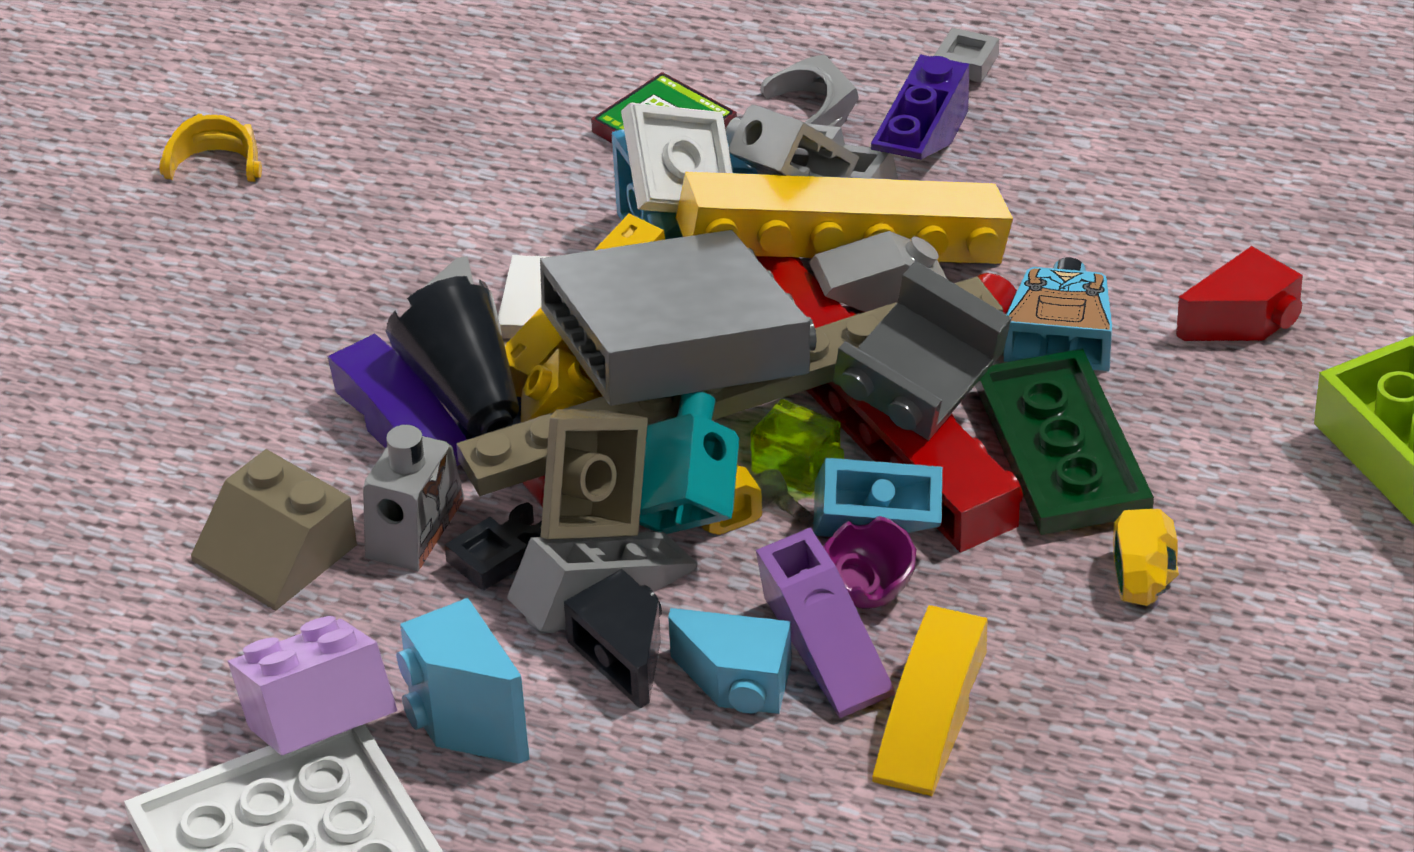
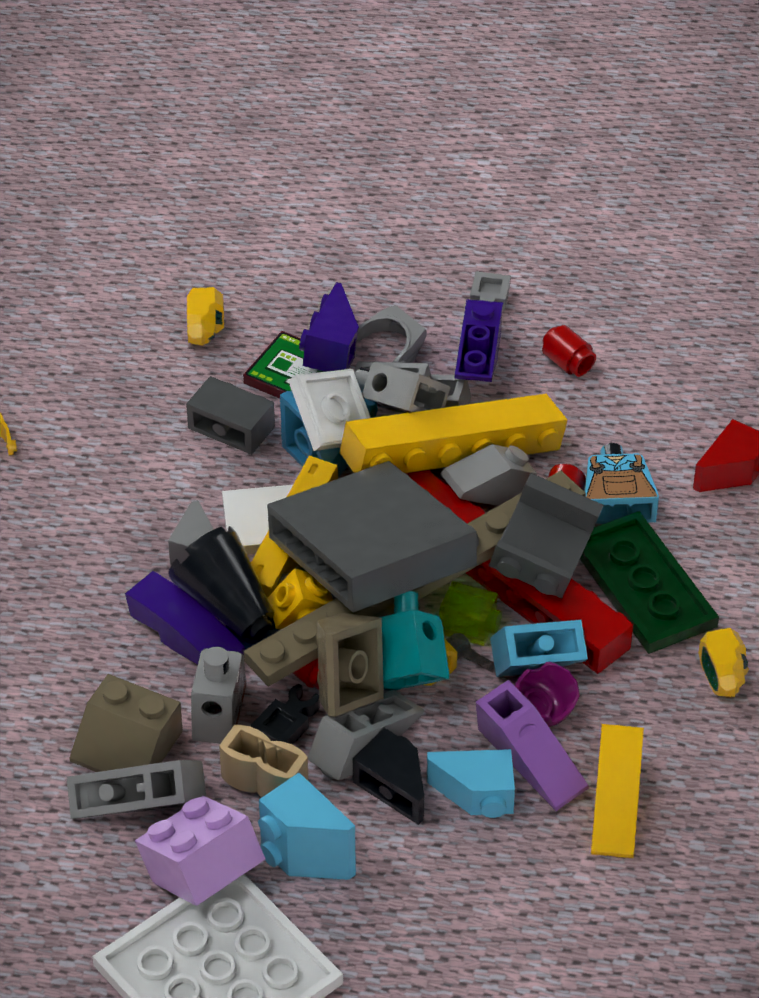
camera: 15 degrees left, 5 degrees up
(259, 599) = (135, 788): none -> light grey slope
(424, 578) = (256, 763): none -> tan brick
(555, 164) = (230, 415): none -> dark grey brick
(562, 39) = (204, 314): none -> yellow rock
(721, 74) = (331, 334): none -> dark purple slope
(1051, 139) = (568, 350): none -> red brick

